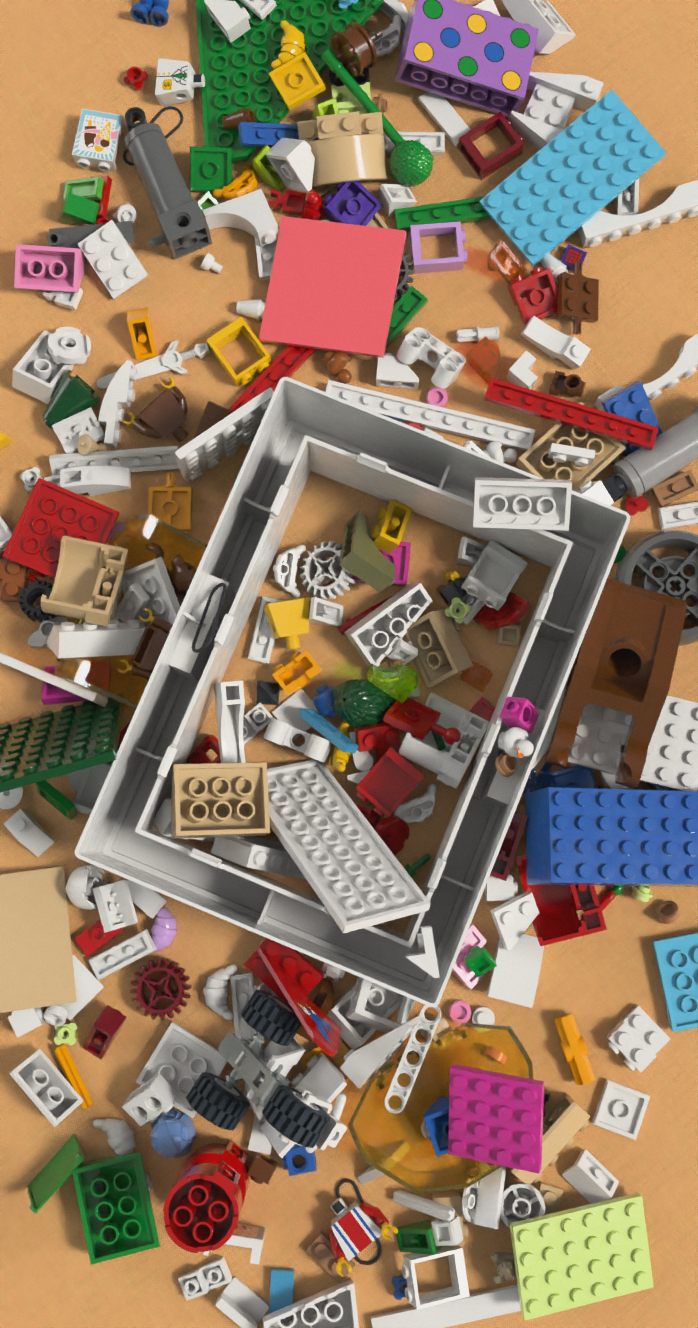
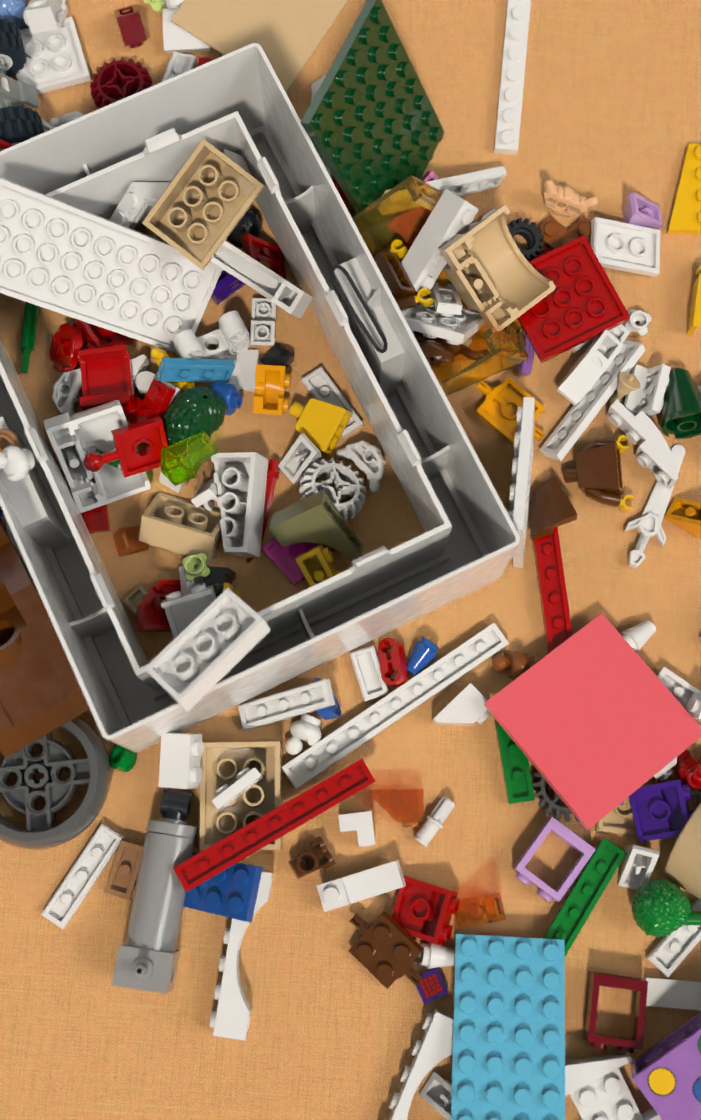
camera: 130 degrees right, 5 degrees down
(229, 334) = (630, 586): yellow window -> none
(422, 345) = (448, 763): white beam -> none
(437, 397) = (407, 729): bright pink tile -> none
(519, 713) = (33, 489): dark pink brick -> none
(636, 505) = (144, 815): red piece -> none

